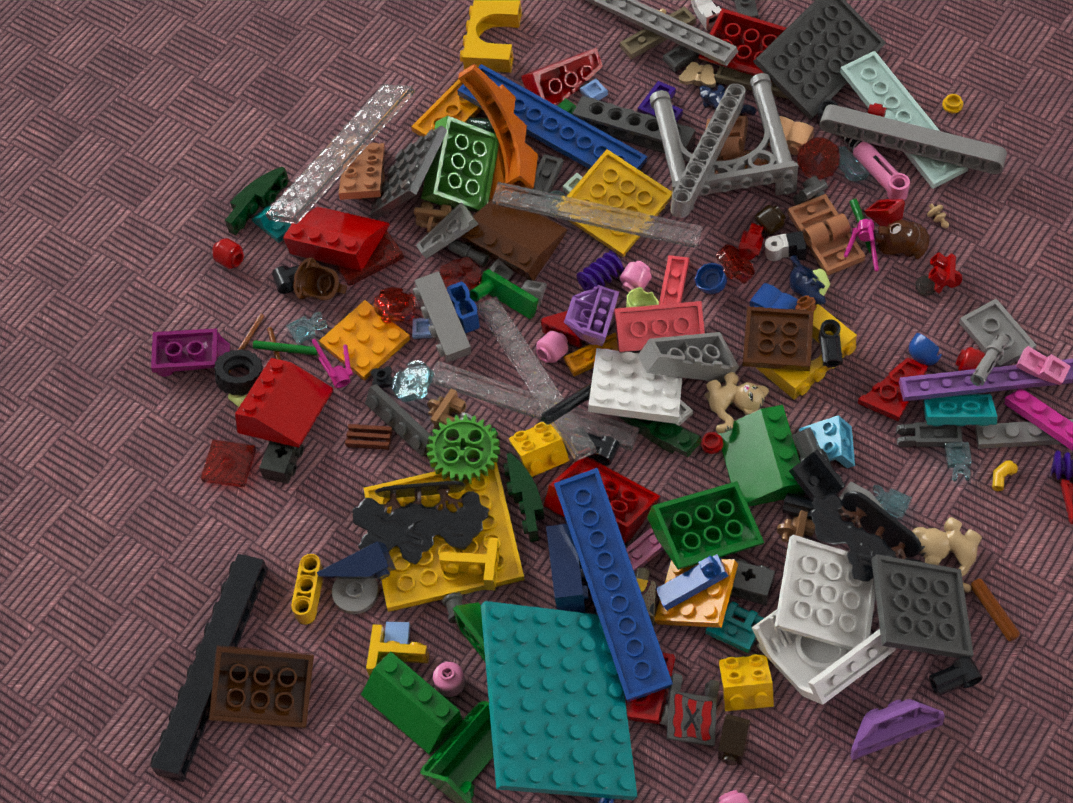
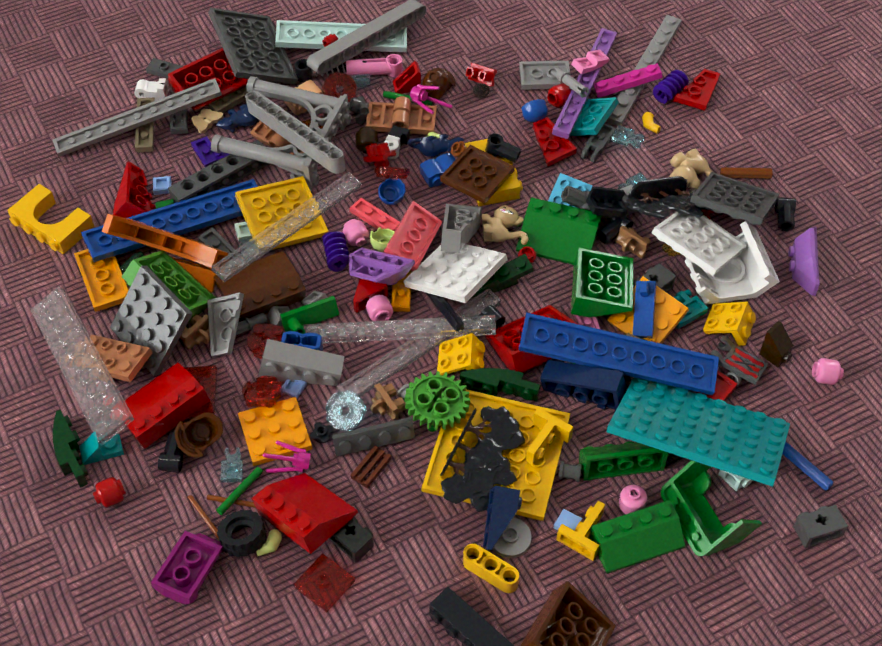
camera: 70 degrees left, 5 degrees down
(939, 217) = (432, 58): tan hair -> none
(952, 103) = (347, 10): yellow plate -> none

